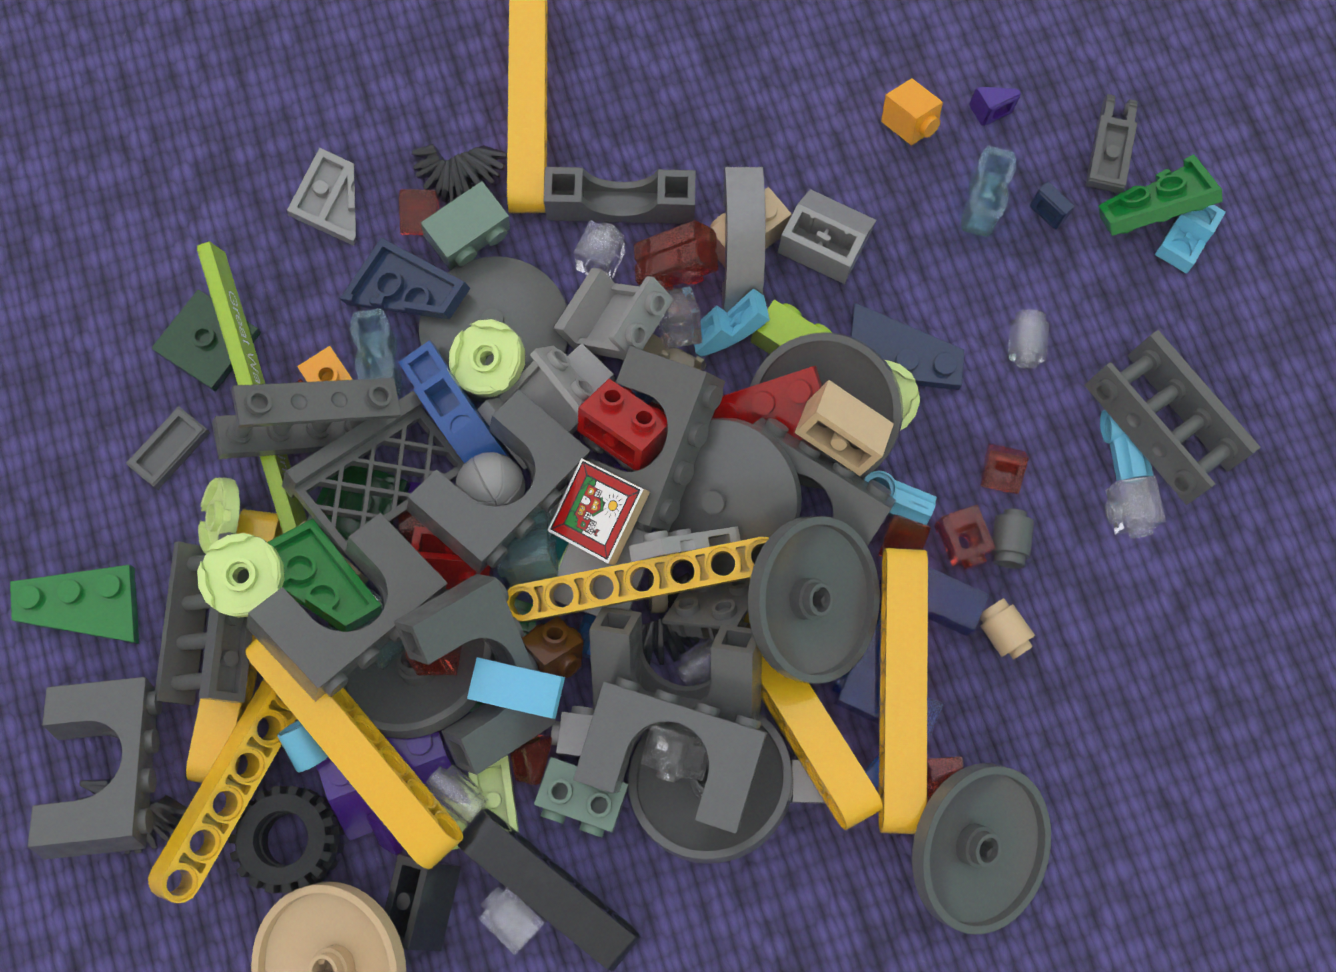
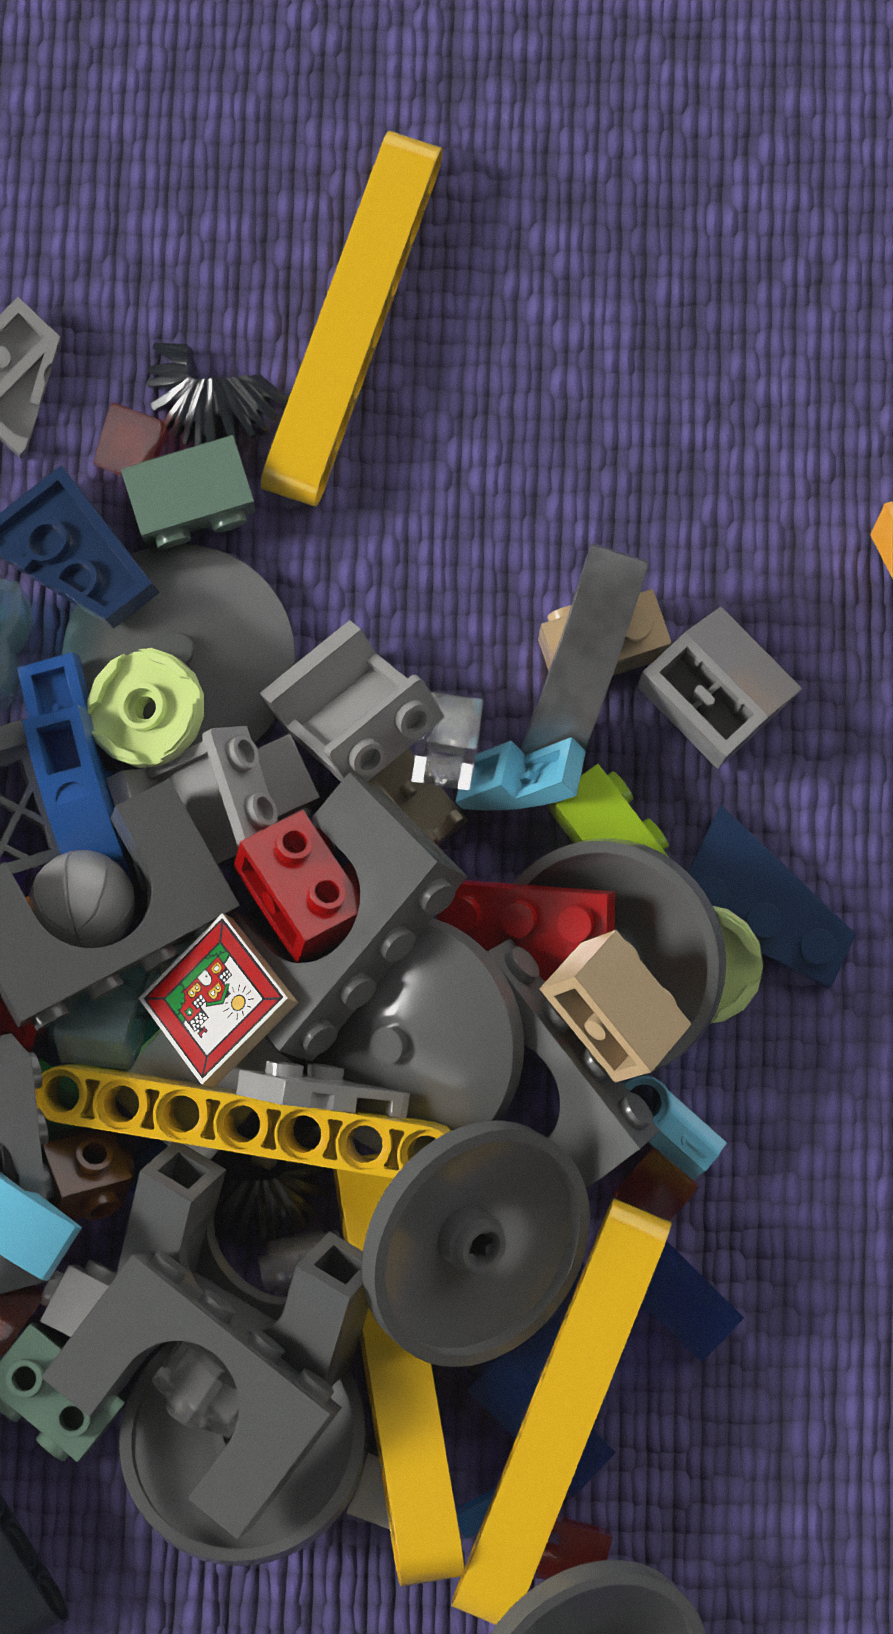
camera: 20 degrees right, 5 degrees up
(579, 196) = (385, 509): dark grey arch -> none
(600, 248) = (373, 595): clear brick -> none
(677, 255) = (476, 650): clear red brick -> none
(705, 609) = (326, 1198): dark grey hinge -> none
(967, 524) = (762, 1200): clear red brick -> none
(1004, 468) = (847, 1131): clear red slope -> none
(1006, 629) = (754, 1373): tan brick -> none
(1012, 538) = (815, 1243): dark grey brick -> none

